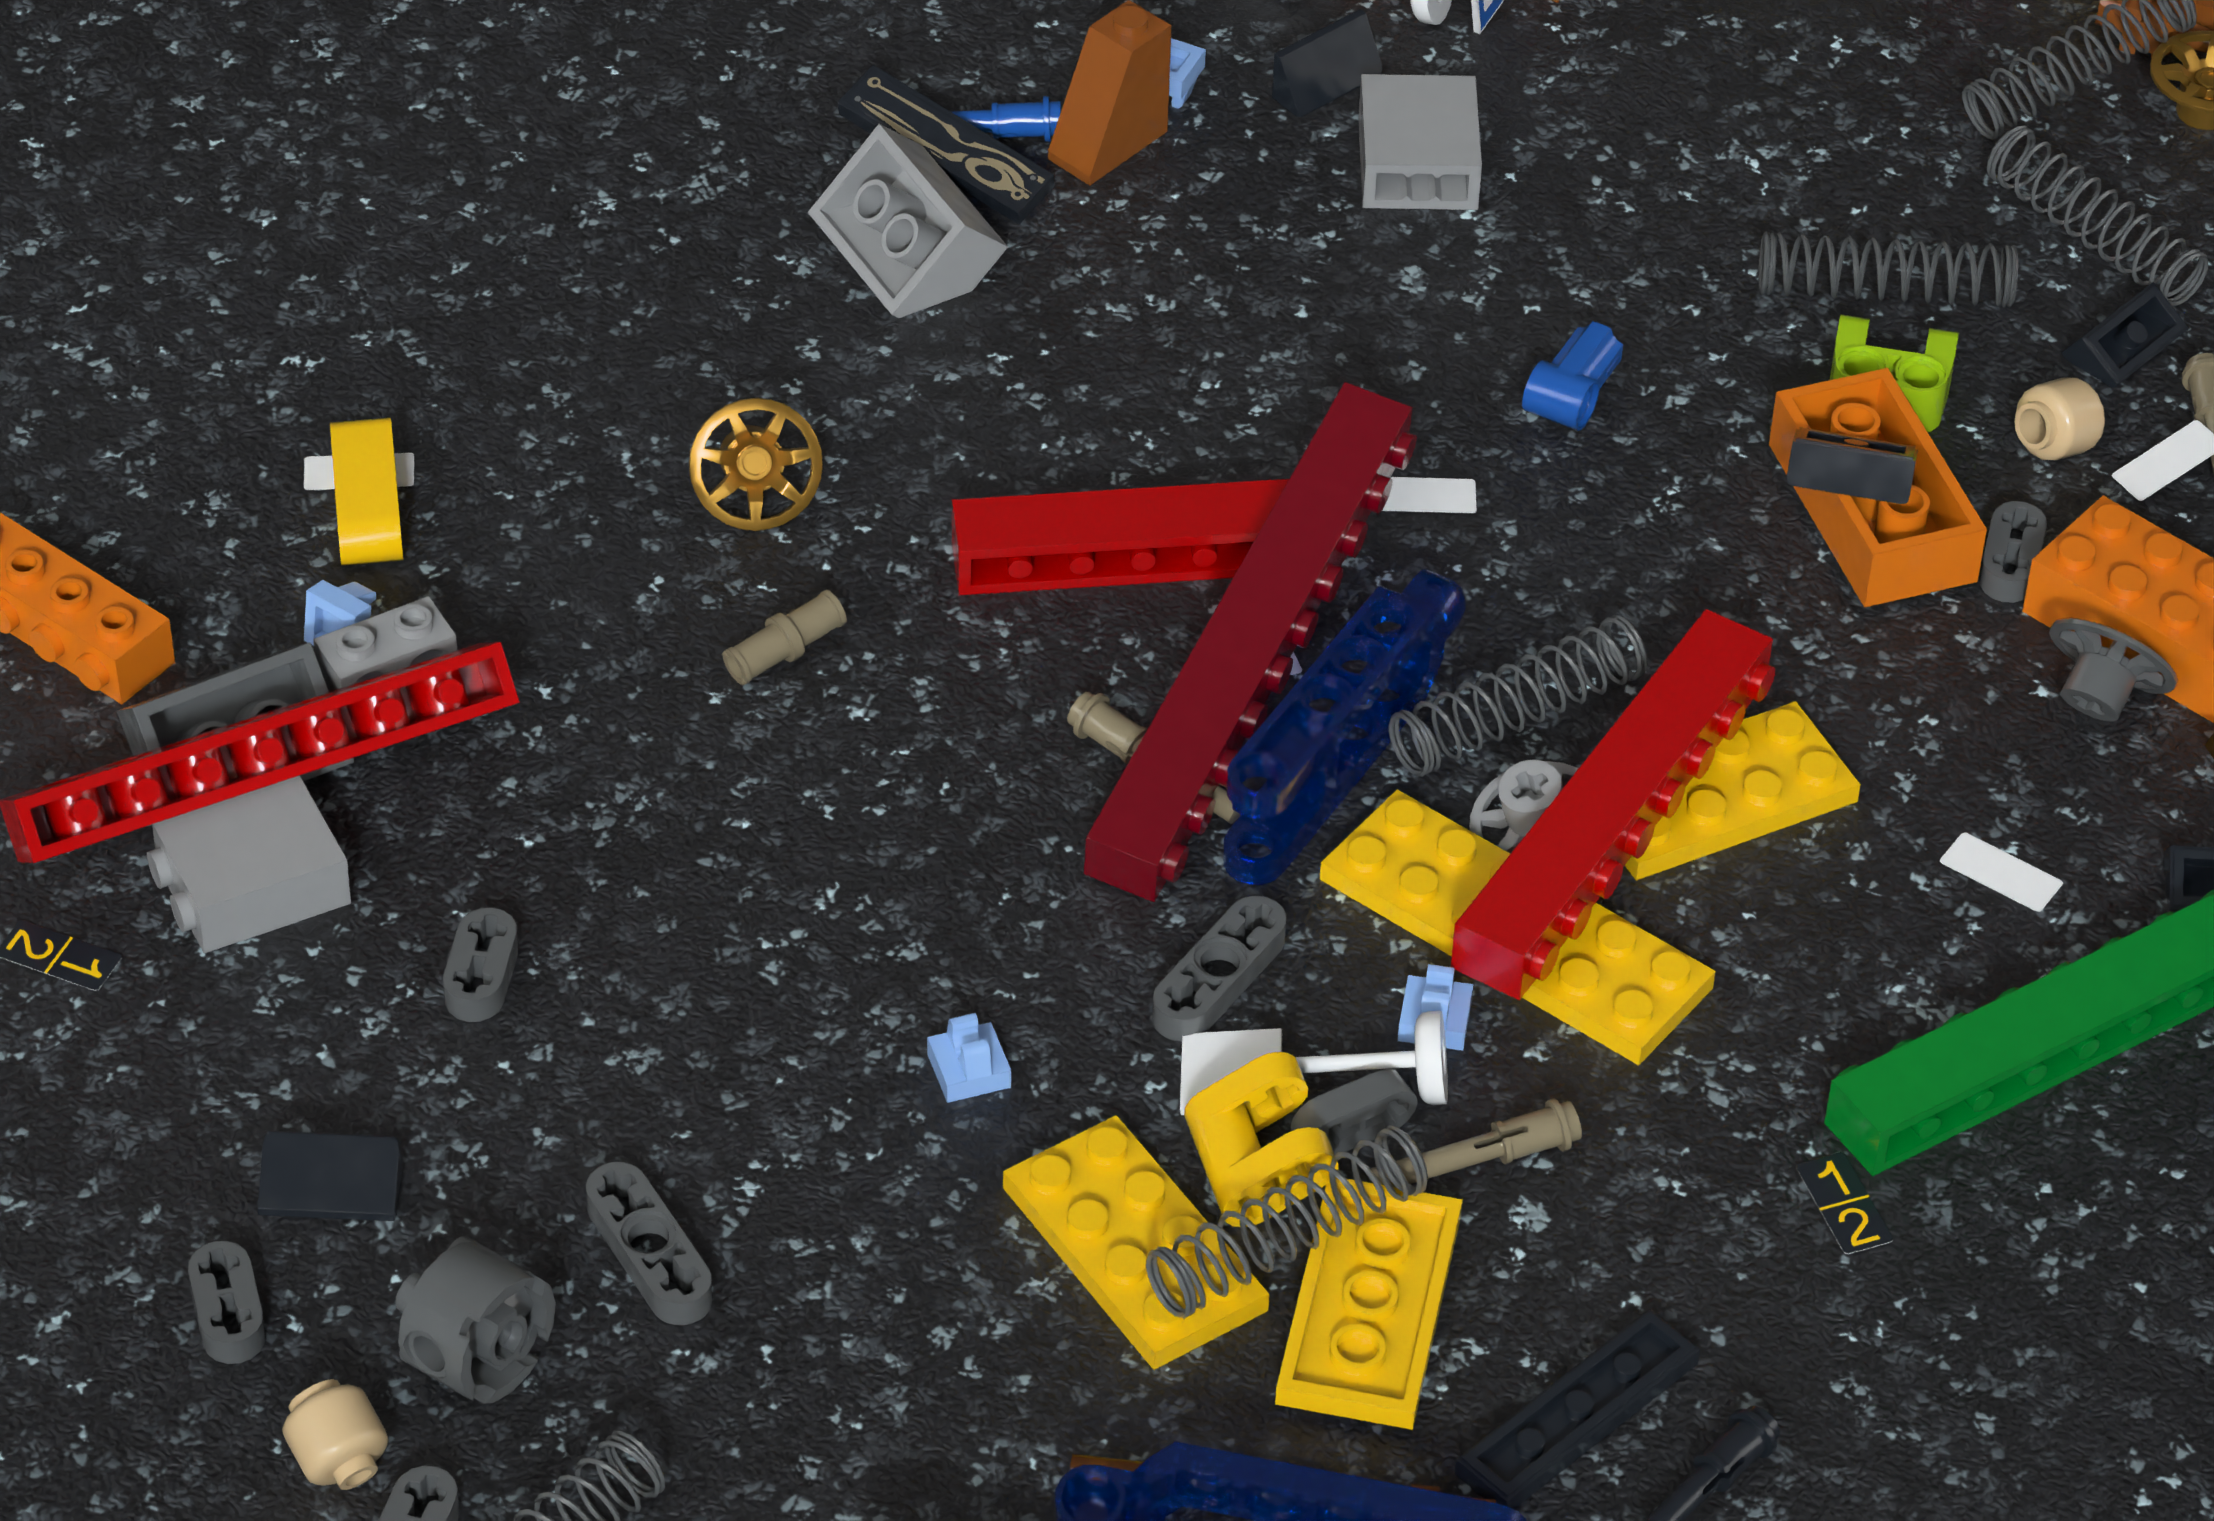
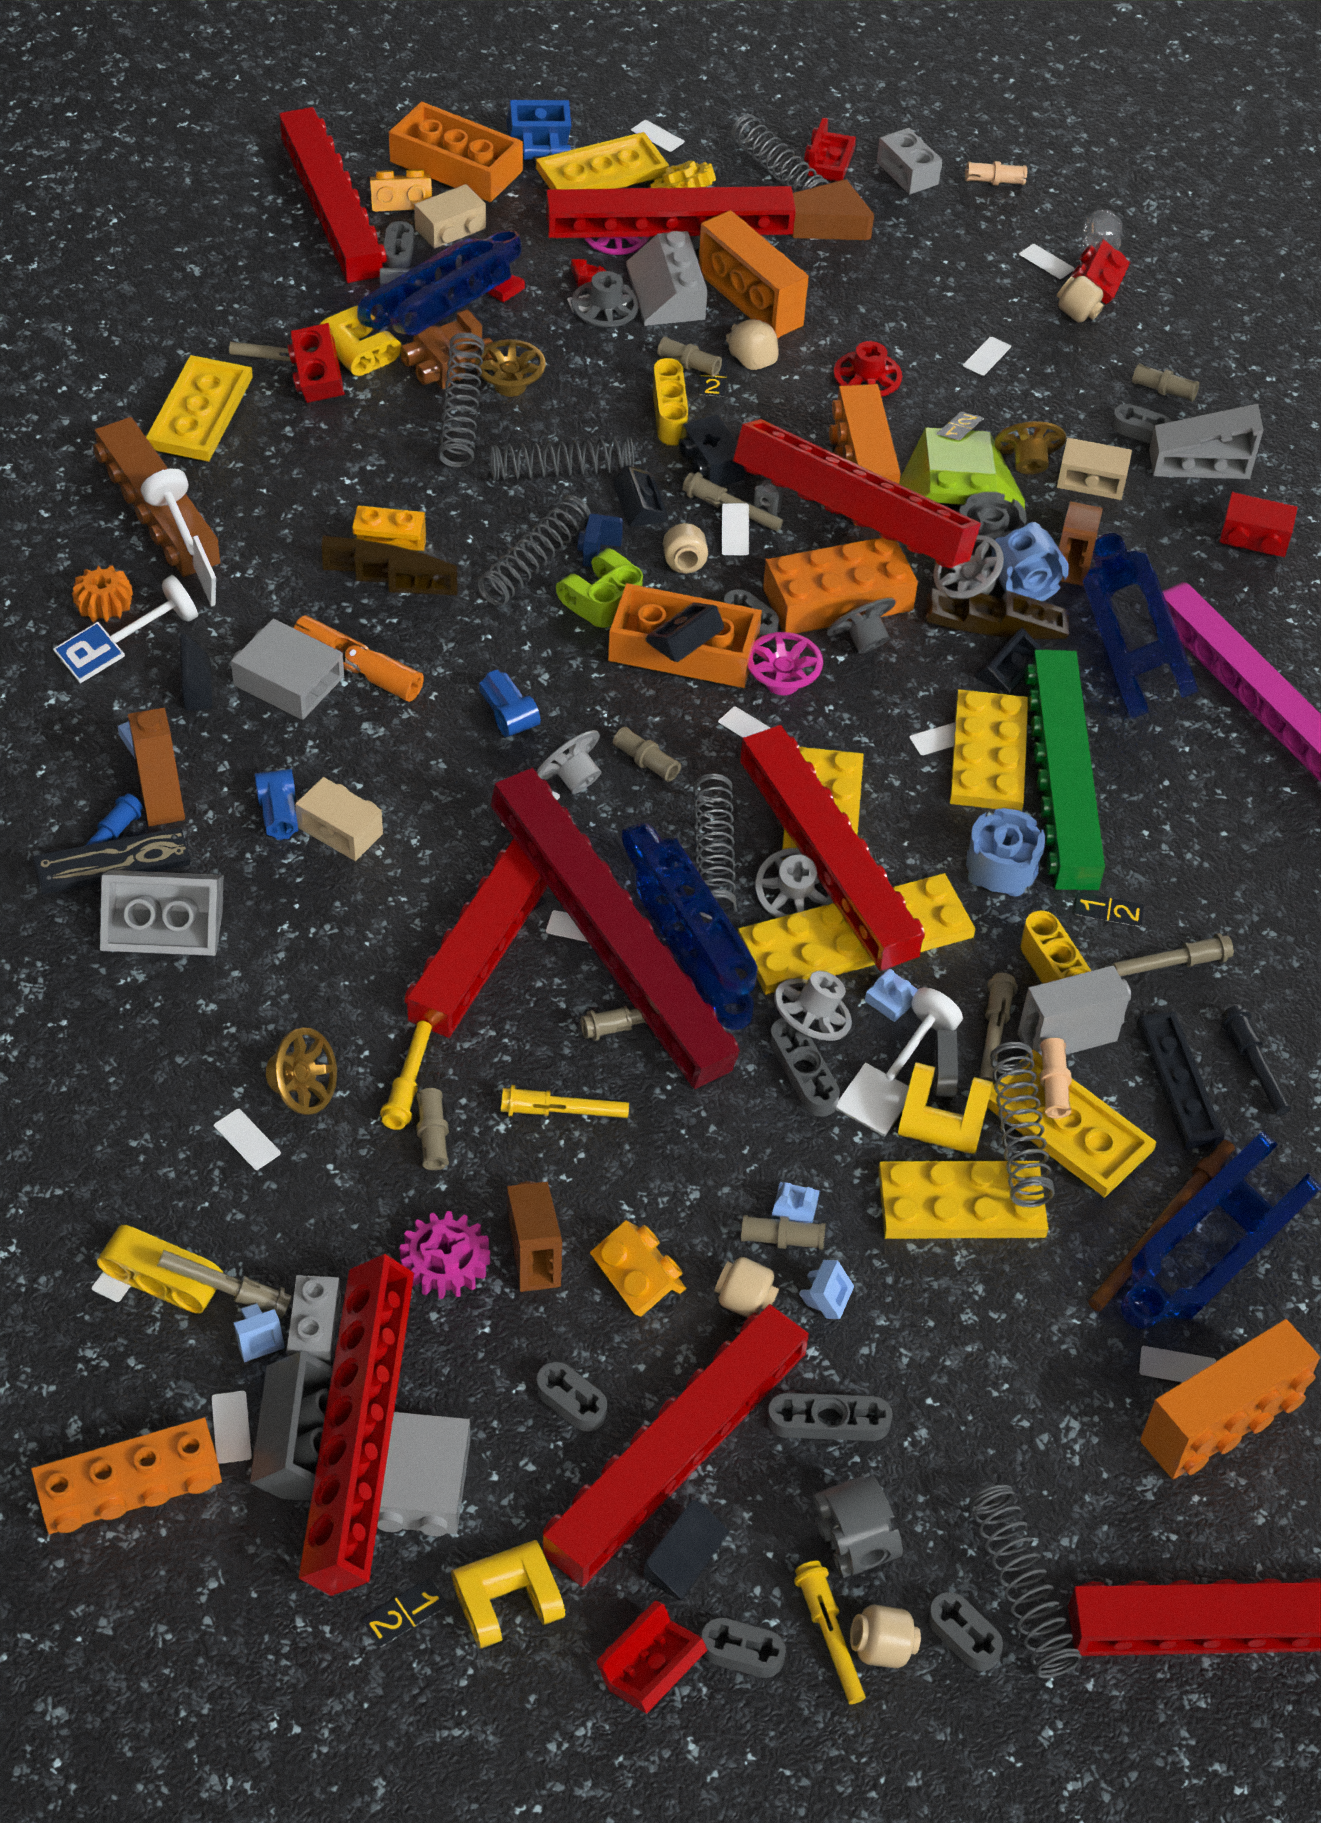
camera: 60 degrees left, 5 degrees up
(139, 1201) = (649, 1658): none -> red bracket
(179, 1024) = (500, 1575): none -> yellow connector
(218, 659) = (231, 1427): none -> white sticker
(339, 1358) = (816, 1590): none -> yellow pin
(386, 572) = (245, 1290): none -> dark tan pin
(482, 1093) = (673, 1445): none -> red brick
(593, 737) = (442, 1250): none -> dark pink gear
(636, 484) = (247, 1139): none -> white sticker
(684, 800) = (534, 1236): none -> dark orange slope
(733, 937) = (637, 1266): none -> light orange bracket
(777, 1053) = (746, 1287): none -> tan head
(794, 588) = (397, 1110): none -> yellow pin
(849, 1148) = (829, 1289): none -> light blue tile
(898, 695) = (542, 1103): none -> yellow pin
(908, 1062) = (783, 1232): none -> dark tan pin
(1194, 233) = (277, 799): none -> blue piece
(1210, 310) = (339, 818): none -> tan brick
(1330, 923) = (818, 1001): none -> light grey wheel
(1413, 1233) = (1055, 1078): none -> light nougat pin
(1505, 184) = (376, 666): none -> orange piece
(1518, 486) = (576, 767): none -> light grey wheel
(1553, 1207) = (1078, 1009): none -> light grey brick
(1625, 556) = (646, 754): none -> dark tan pin
(1657, 1167) = (1050, 948): none -> yellow beam
(1707, 153) = (400, 567): none -> dark brown slope
(1766, 109) = (391, 527): none -> light orange bracket
(1798, 652) = (742, 723): none -> white sticker
(1807, 1011) = (1005, 851): none -> medium blue brick
(1873, 1354) = (1193, 953): none -> dark tan pin
(1931, 622) = (783, 667): none -> dark pink wheel
(1985, 317) = (599, 530): none -> dark blue bracket
(2014, 926) = (989, 750): none -> yellow plate

